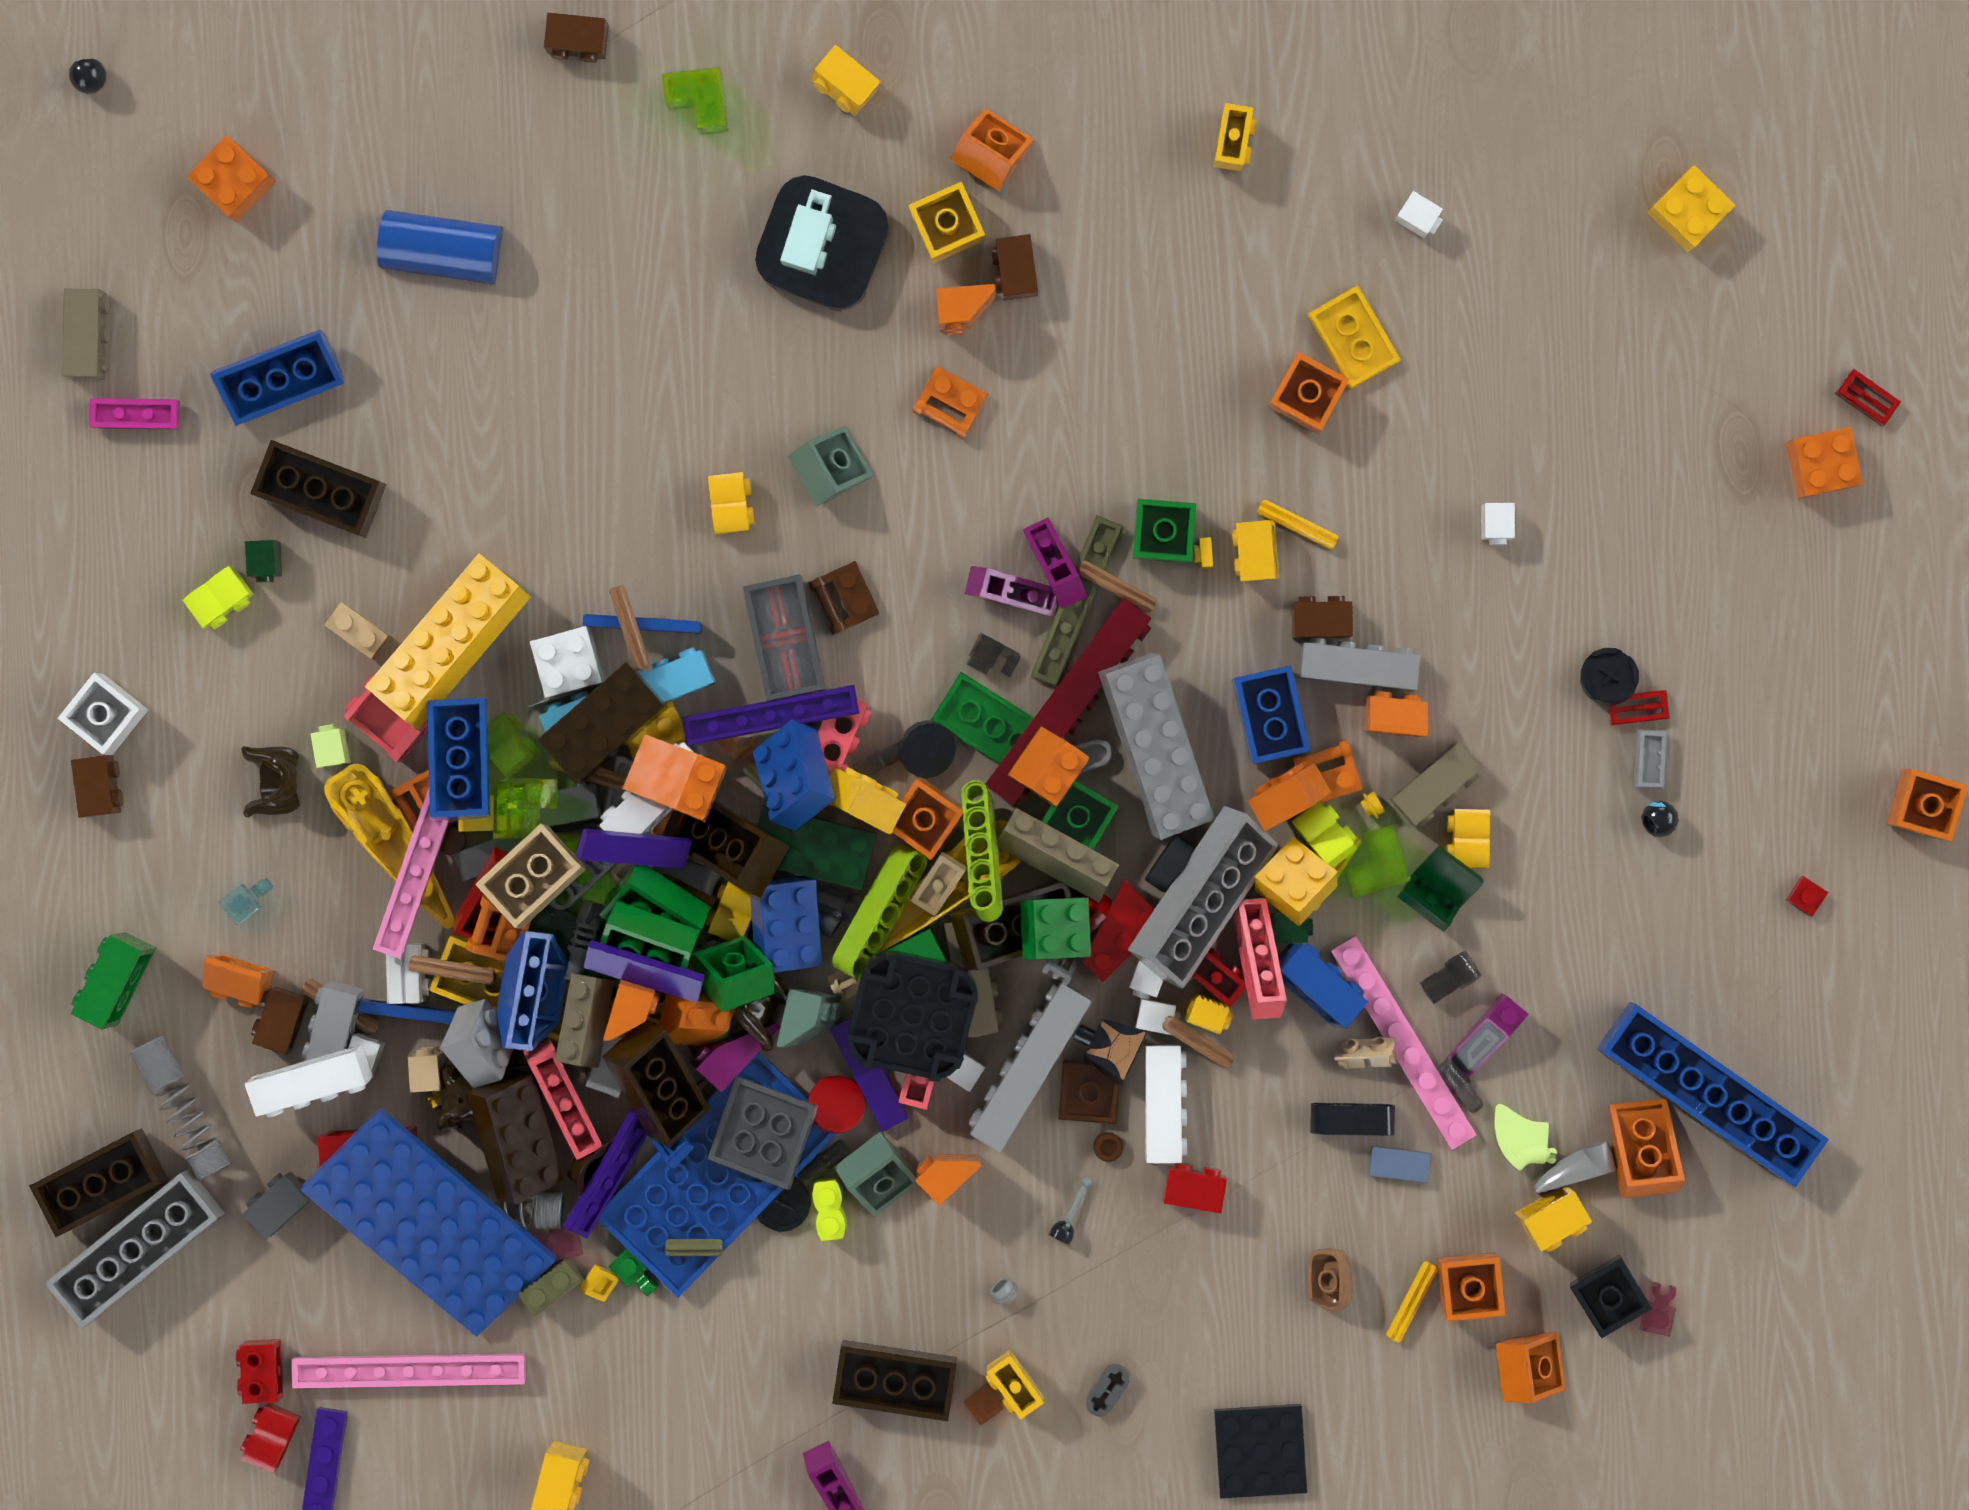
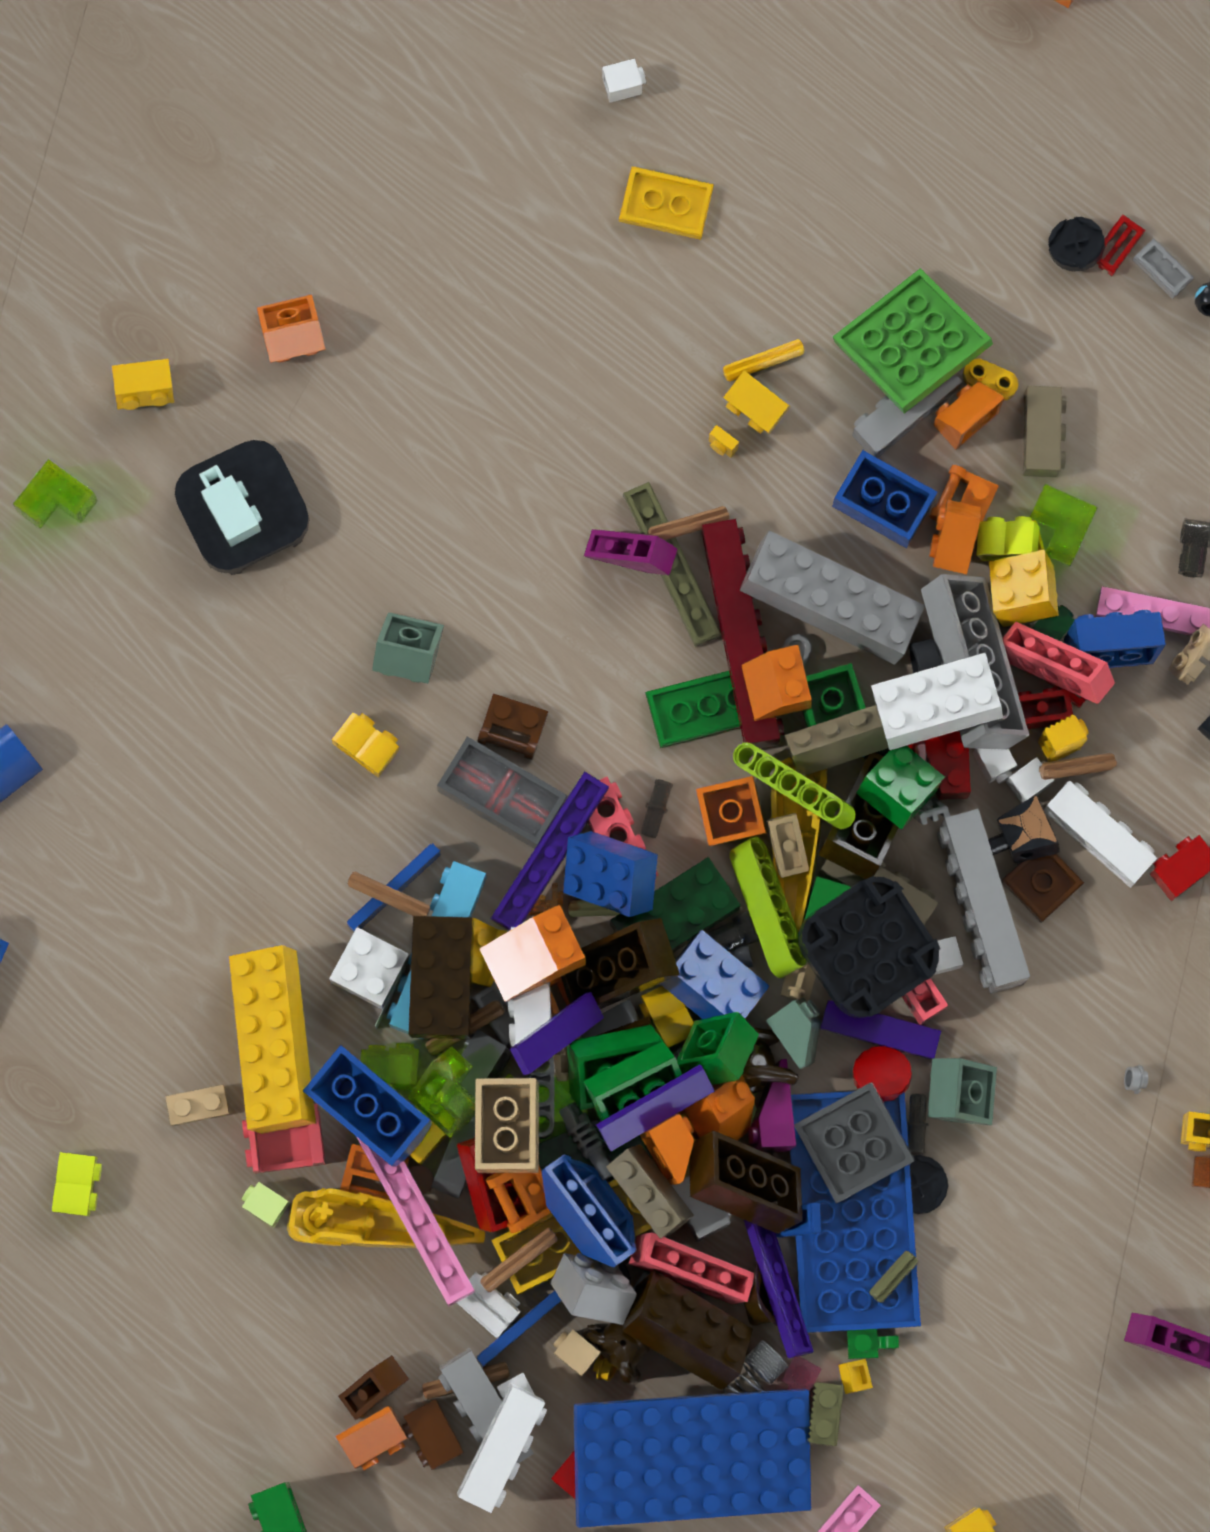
camera: 45 degrees left, 10 degrees down
(97, 786) = (126, 1409): reddish brown brick -> none
(103, 713) = (78, 1351): white brick -> none
(243, 902) = (318, 1381): clear light blue plate -> none
(263, 560) = (80, 1124): dark green brick -> none
(274, 947) = (373, 1387): none -> reddish brown slope
(276, 780) = (252, 1268): dark brown hair -> none
(318, 488) = (67, 1032): dark brown brick -> none
(827, 1198) = (962, 1154): neon yellow brick -> none
(866, 799) = (678, 839): yellow brick -> none
(894, 1380) = (1131, 1218): dark brown brick -> none
(927, 749) = (680, 766): black tile -> none
(945, 1174) = (1009, 1039): orange slope -> none
(947, 222) = (313, 405): yellow brick -> none
(955, 394) = (439, 514): orange plate -> none
(962, 306) = (381, 448): orange slope -> none
(986, 652) = (649, 659): clear smoke piece -> none
(1011, 591) = (620, 602): magenta slope -> none
(1015, 266) = (391, 387): reddish brown brick -> none
(1063, 1229) = (1129, 993): hinge -> none
(1108, 1146) = (1095, 905): reddish brown tile -> none
(1138, 902) = (937, 701): none -> white brick
(1164, 531) = (680, 454): green brick -> none
(1233, 137) = (445, 154): yellow brick -> none
(1308, 393) = (677, 266): orange brick -> none
(1322, 619) = (848, 402): reddish brown brick -> none
(1372, 805) = (1016, 489): yellow plate -> none
(1414, 623) = (912, 340): none -> bright green plate
(1440, 887) = (1122, 492): dark green bracket -> none
(1441, 707) = (991, 376): none -> yellow plate
(1470, 836) = (1104, 442): yellow brick -> none
(1497, 522) = (893, 221): white brick -> none

